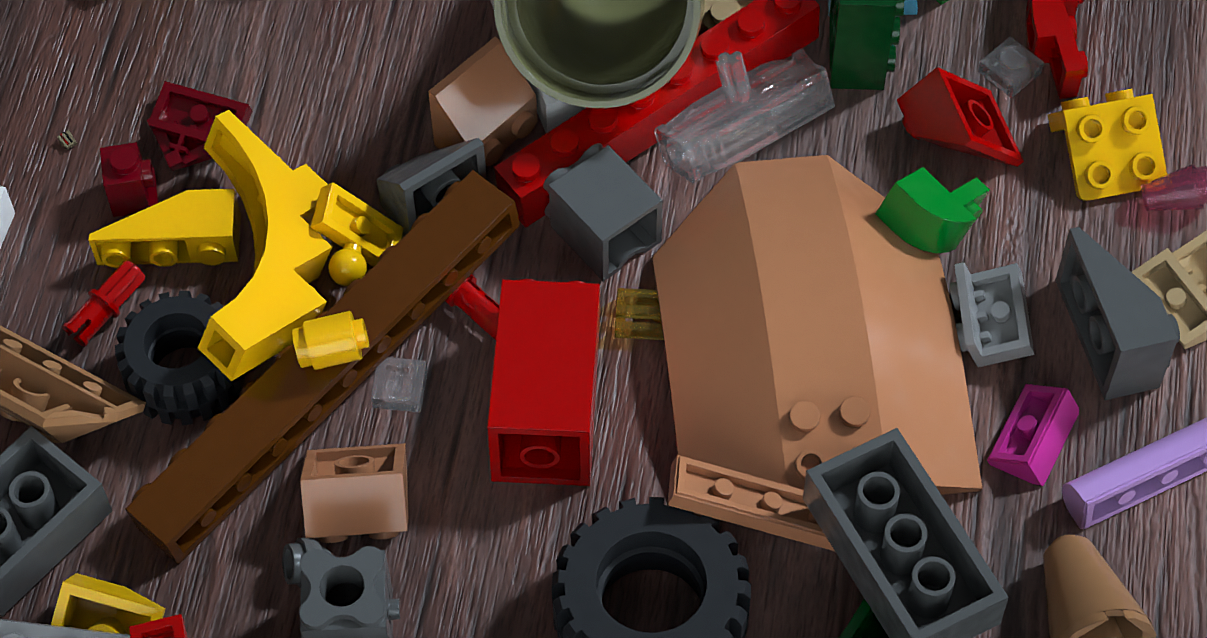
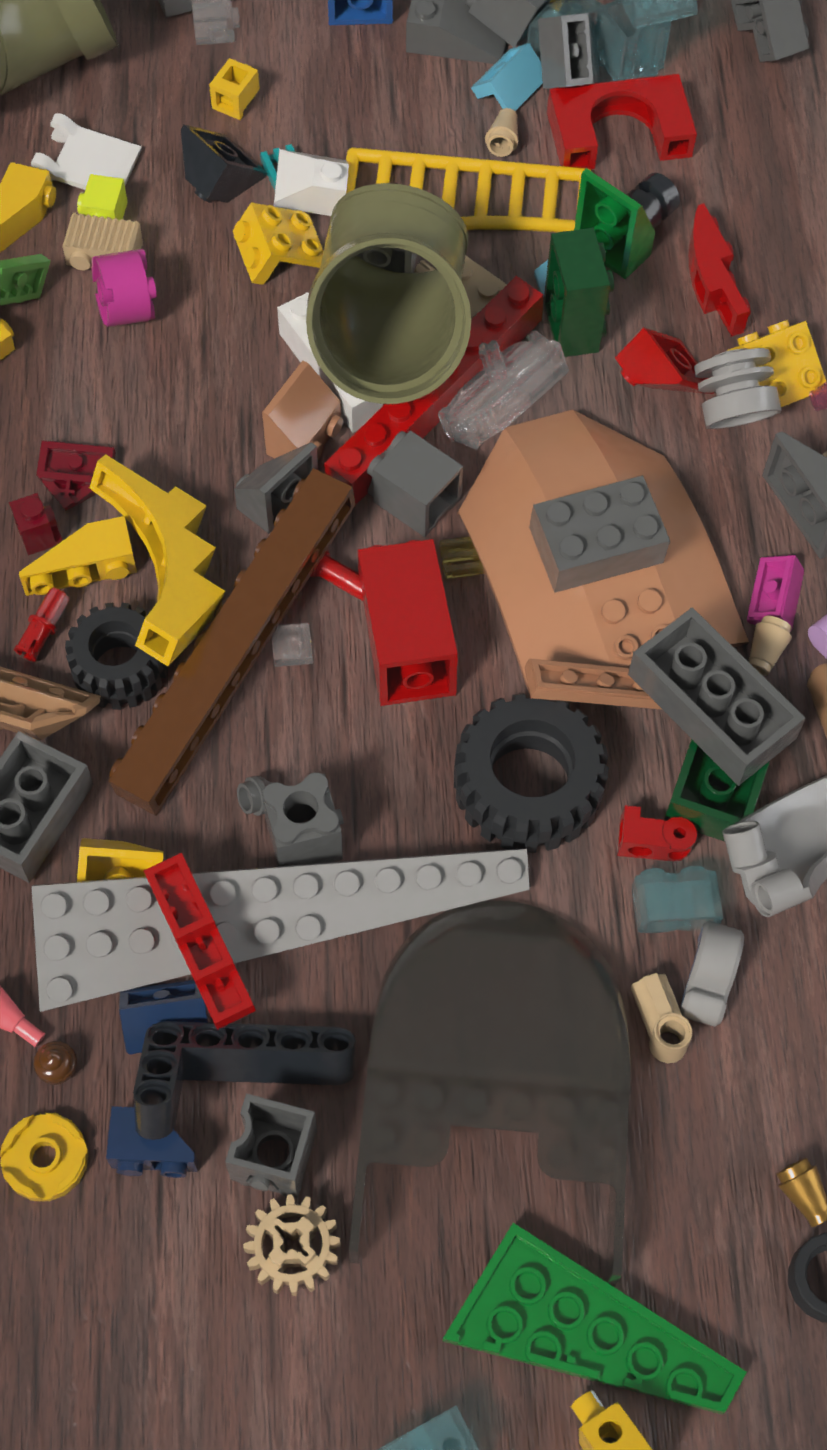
camera: 15 degrees left, 5 degrees up
(330, 340) = (239, 620): yellow brick -> none
(355, 228) = (231, 531): yellow plate -> none
(355, 492) = (282, 733): nougat slope -> none
(806, 314) = (599, 533): none -> dark grey brick
(929, 214) = (662, 441): green brick -> none
(992, 314) = (727, 509): light grey bracket -> none
(1005, 496) = (768, 643): none -> tan cone
(1011, 67) = (690, 318): clear plate -> none
(1040, 158) = (736, 382): none -> light grey wheel

